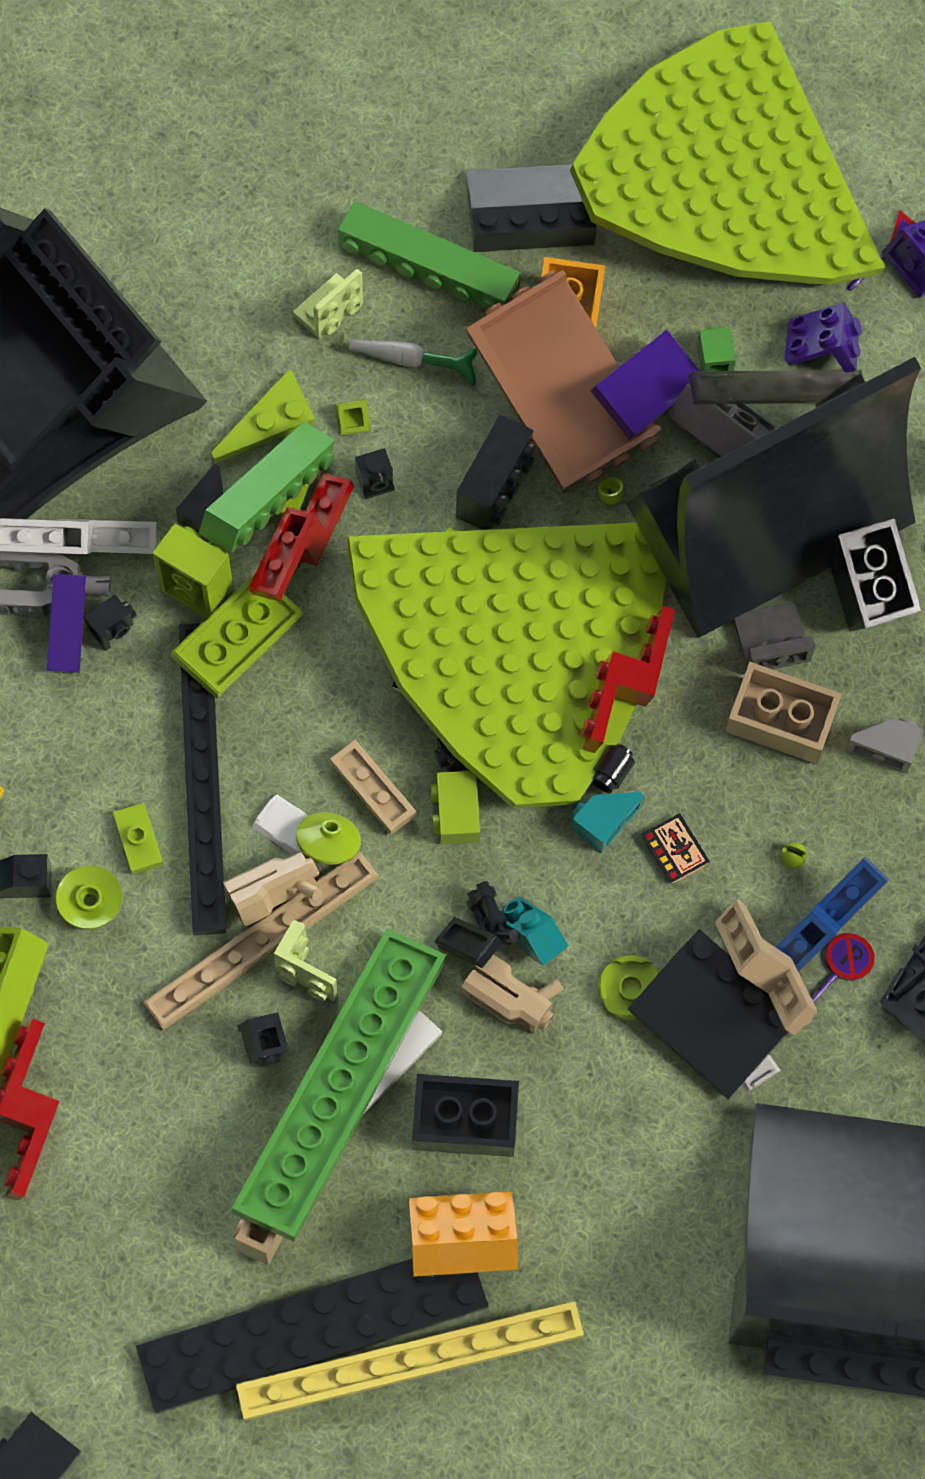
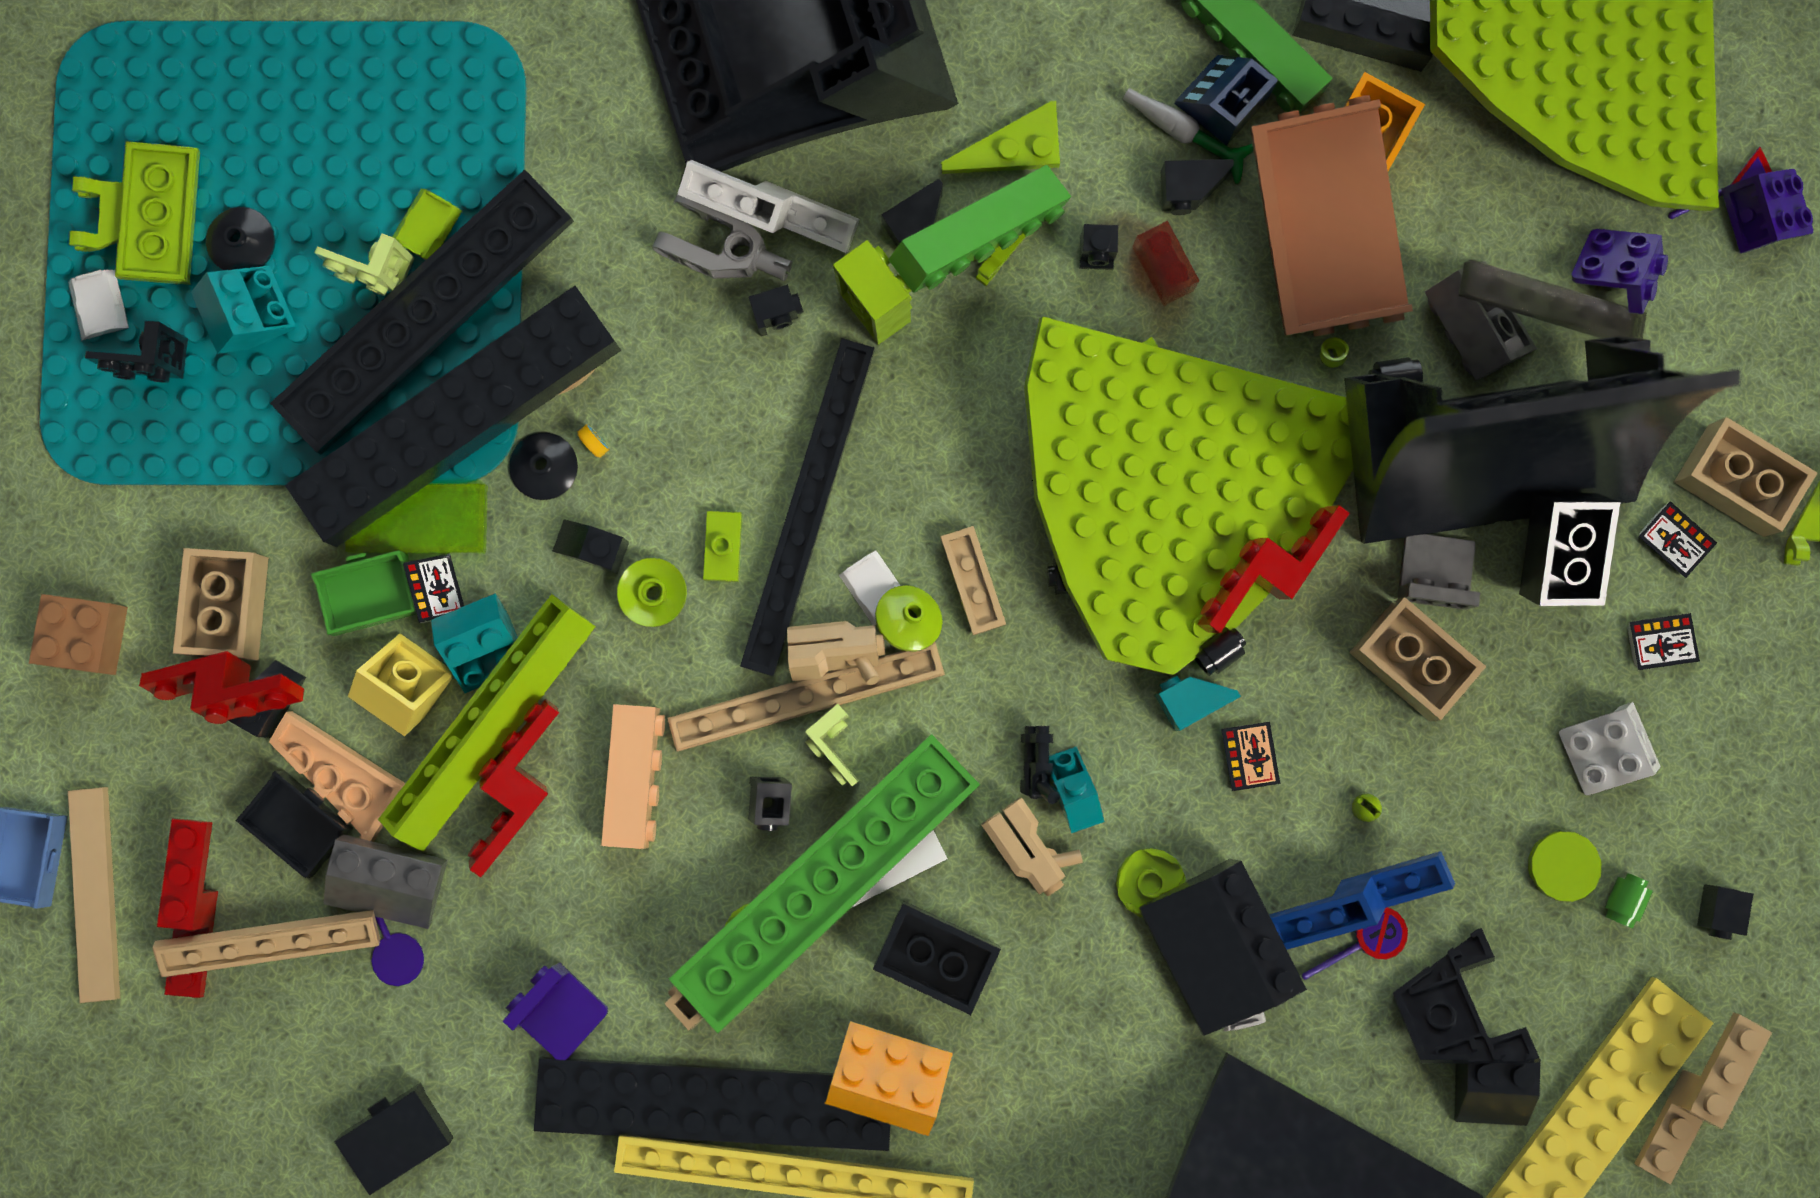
camera: 25 degrees right, 15 degrees up
(66, 623) = (729, 296): dark purple tile -> none
(129, 1062) = (631, 776): none -> light nougat brick
(136, 1295) = (556, 1011): none -> dark purple bracket
(235, 638) = (895, 370): lime tile -> none
(301, 537) = (997, 291): red bracket -> none
(331, 303) = (1123, 42): yellowish green bracket -> none
(352, 416) = (1100, 174): lime slope -> none
(434, 395) = (1190, 182): none -> black slope
(435, 466) = (1165, 263): none -> clear red brick
(437, 315) = (1227, 95): none -> dark blue slope
(457, 807) = (1048, 634): lime brick -> none
(468, 942) = (1006, 781): black tile -> none
(495, 474) = (1222, 294): black brick -> none
(645, 384) = (1416, 253): dark purple tile -> none
(716, 349) = (1503, 238): bright green brick -> none
(766, 967) = (1293, 930): tan bracket -> none
(888, 743) = (1514, 731): light grey slope -> none

